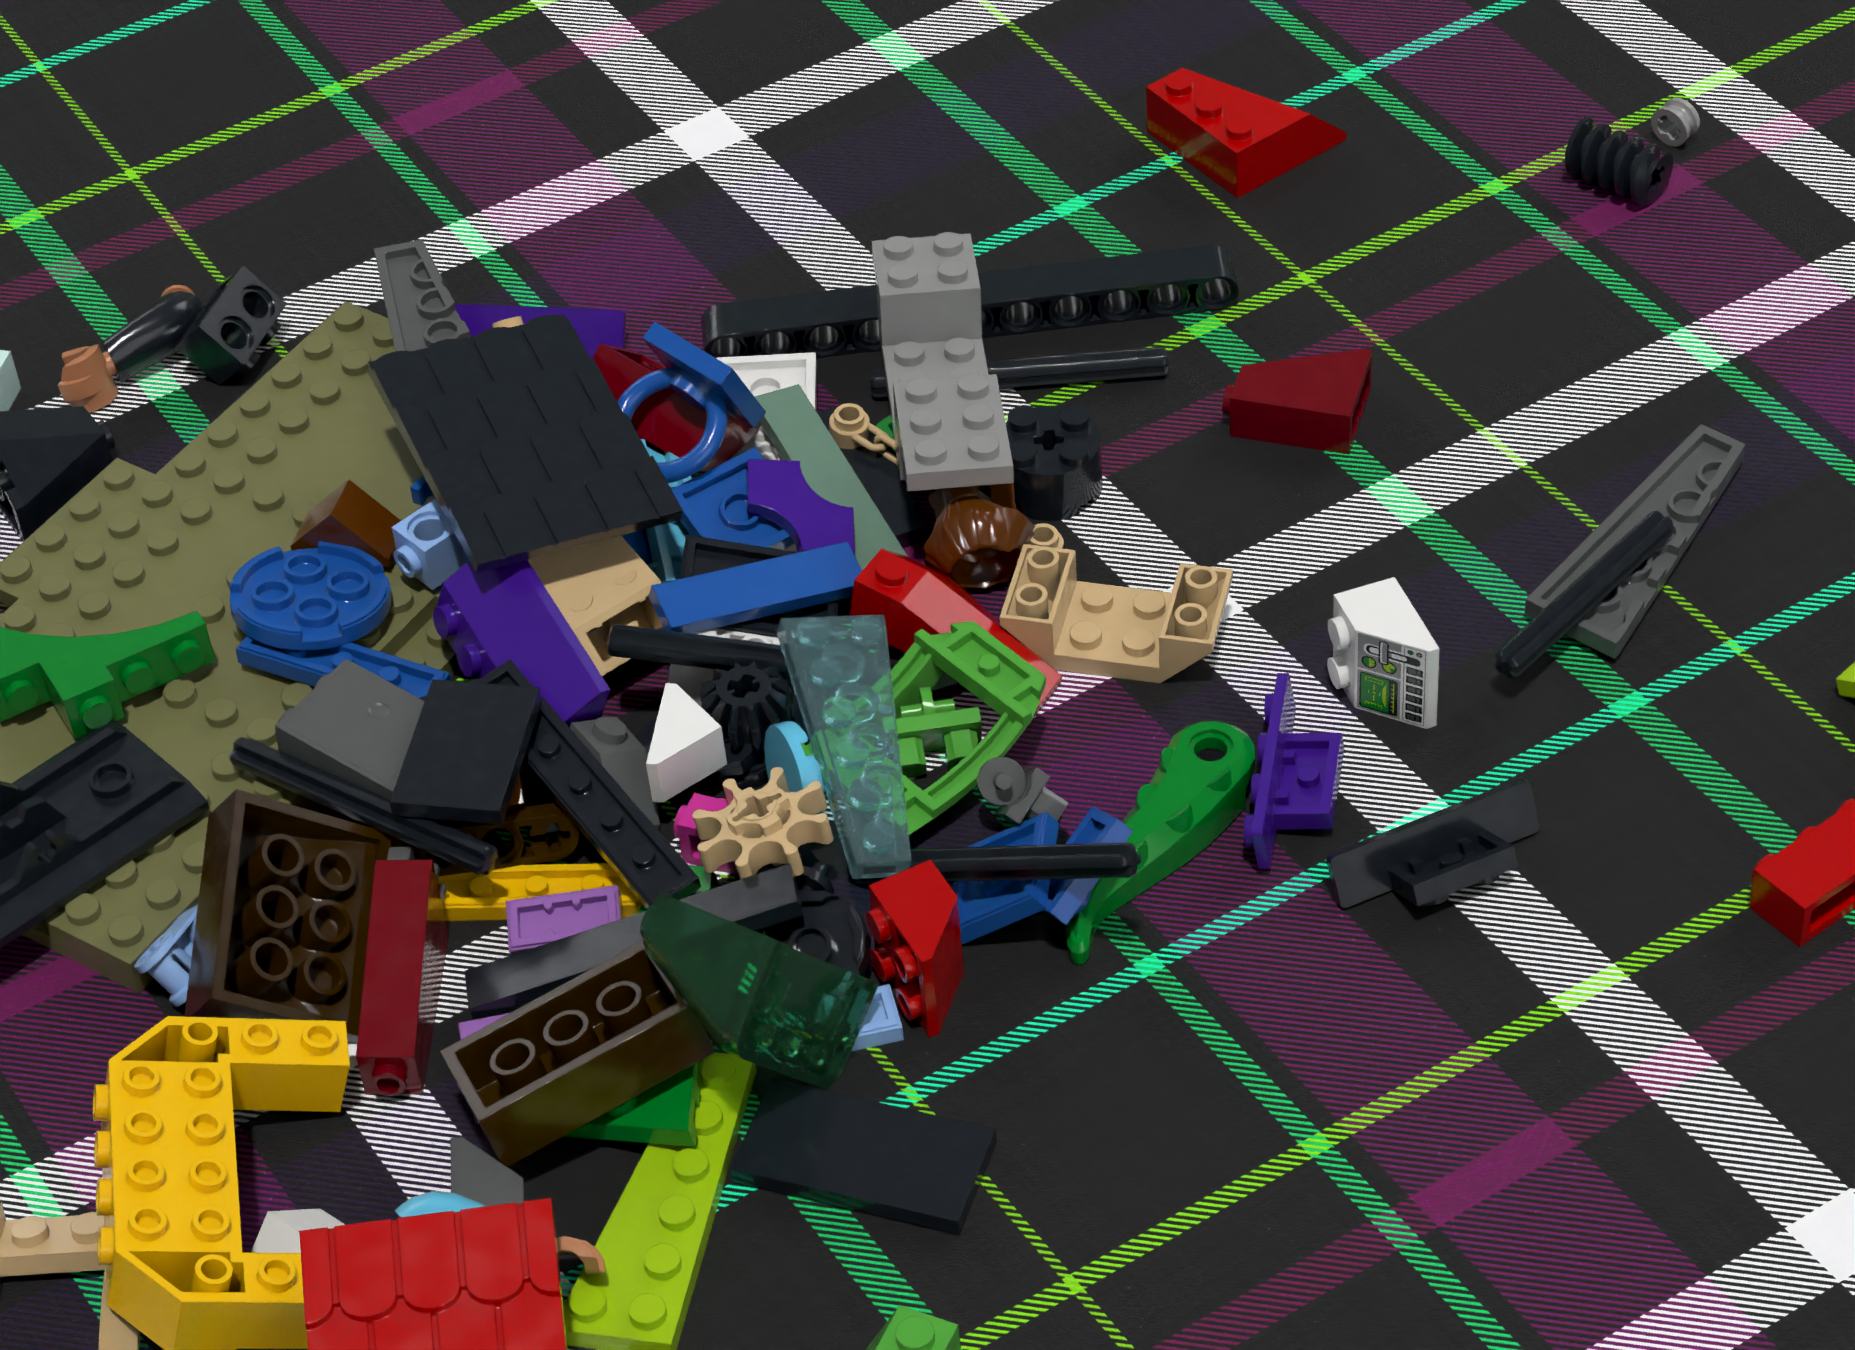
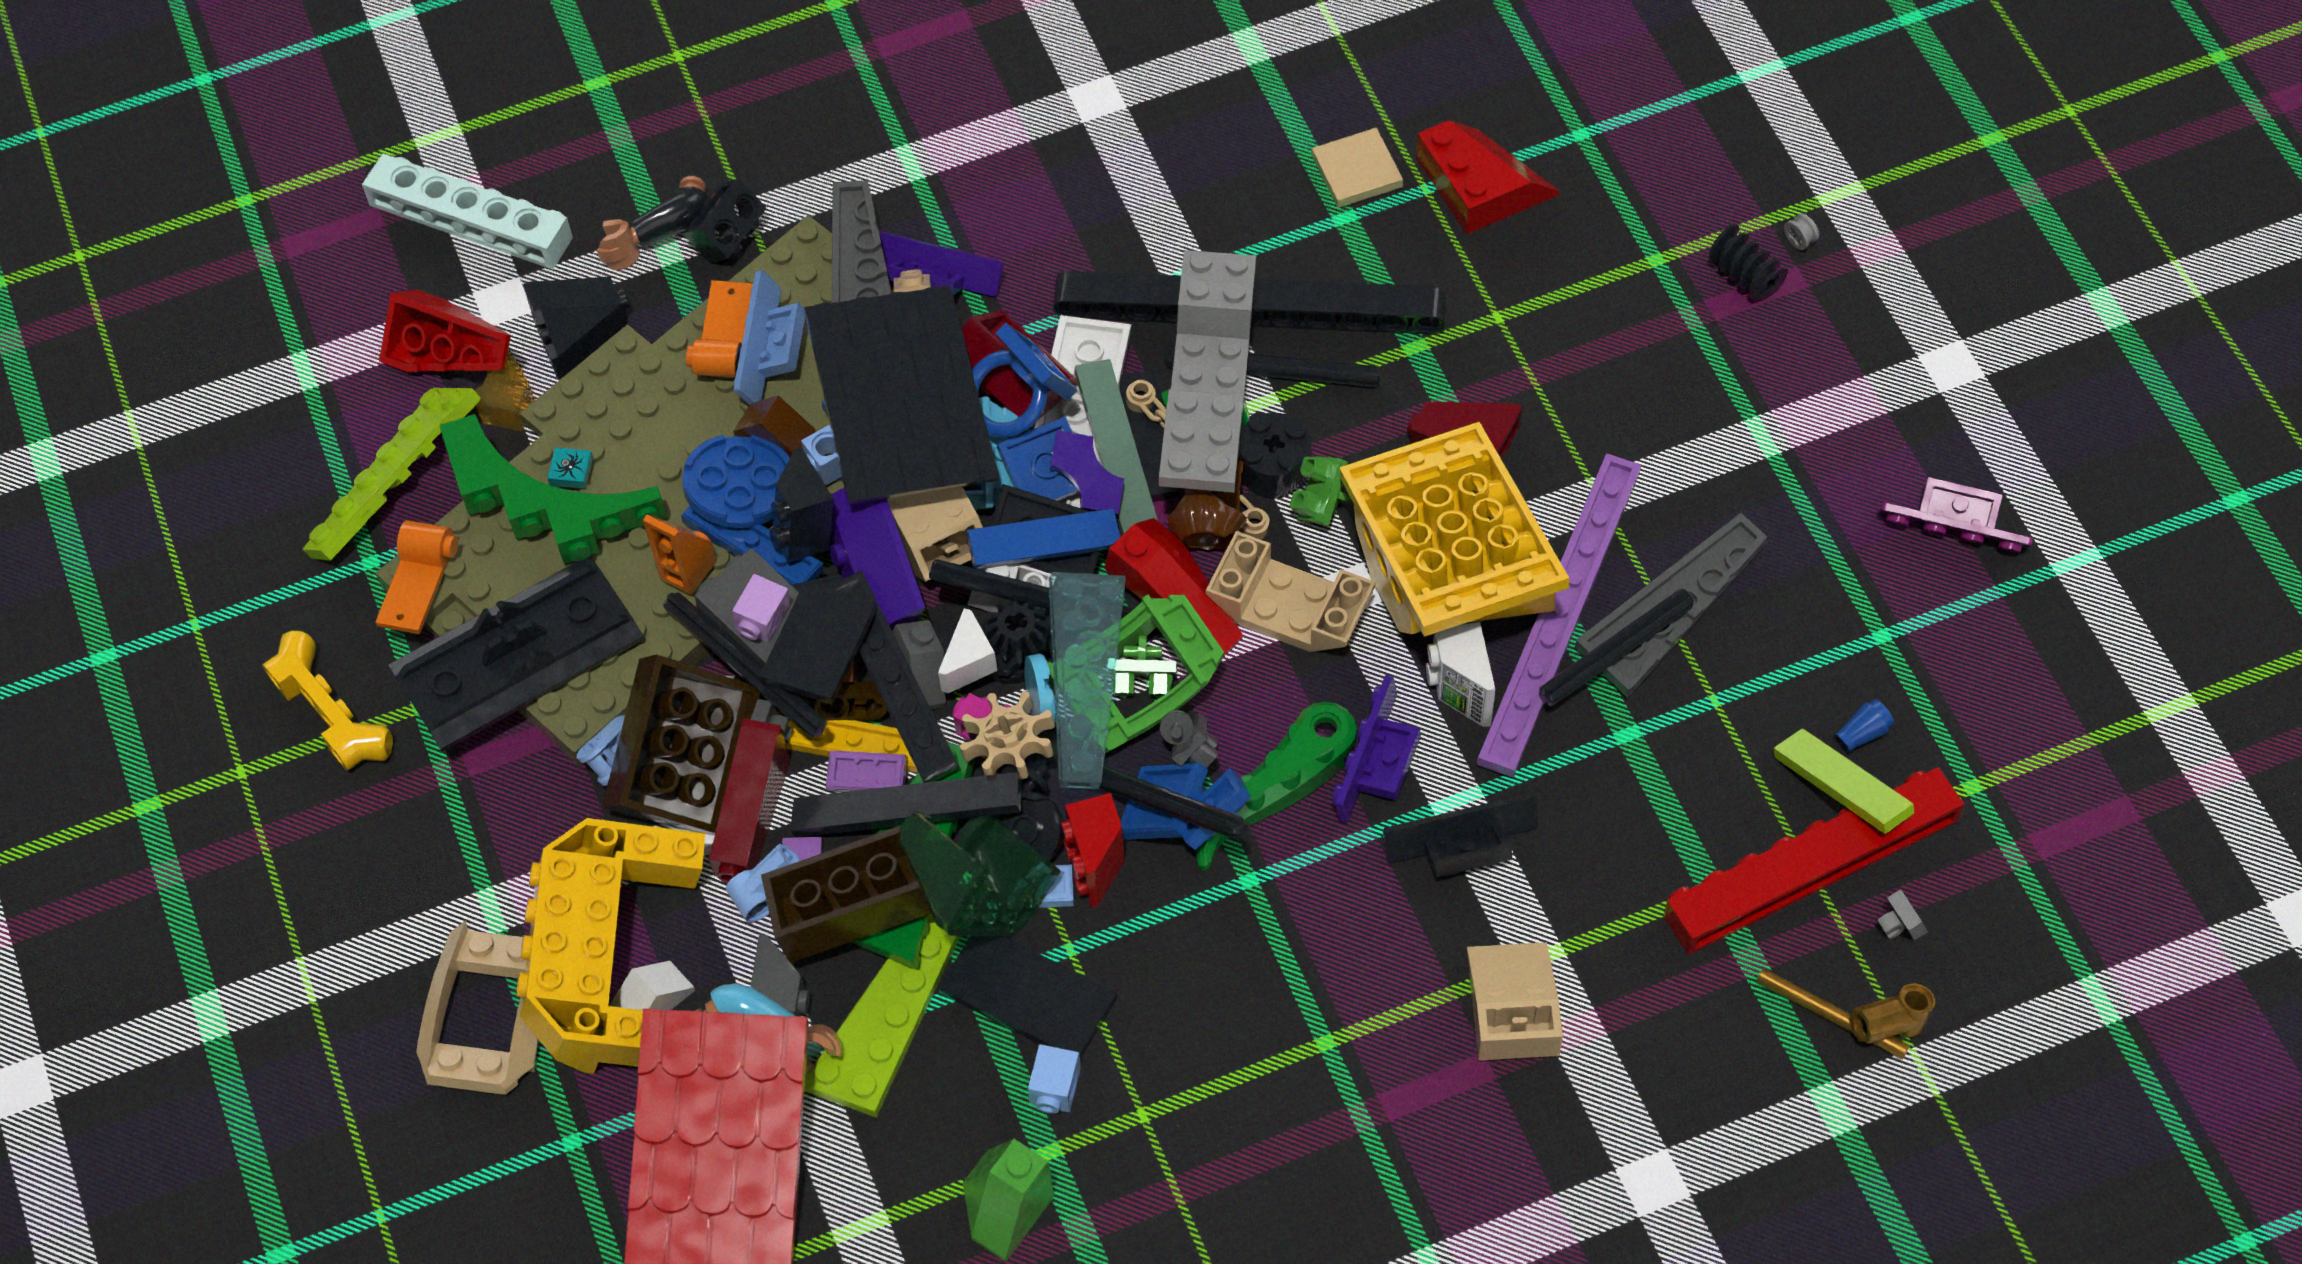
camera: 10 degrees right, 15 degrees up
(66, 617) = (570, 468): none -> teal tile
(243, 677) = (679, 554): none -> orange slope
(255, 435) = (723, 331): none -> orange door
(321, 431) = (769, 338): none -> medium blue bracket
(376, 719) = (760, 609): none -> lavender brick
(411, 602) = (801, 510): none -> black slope
(428, 1092) = (747, 887): none -> light blue piece
(931, 1251) = (1054, 1079): none -> light blue brick
(1072, 148) = (1357, 167): none -> tan tile
(1129, 486) = (1322, 491): none -> bright green hips
(1326, 492) = (1450, 534): none -> yellow wedge
(1491, 584) = (1554, 629): none -> medium lavender plate
(1578, 1040) = (1514, 1001): none -> tan slope

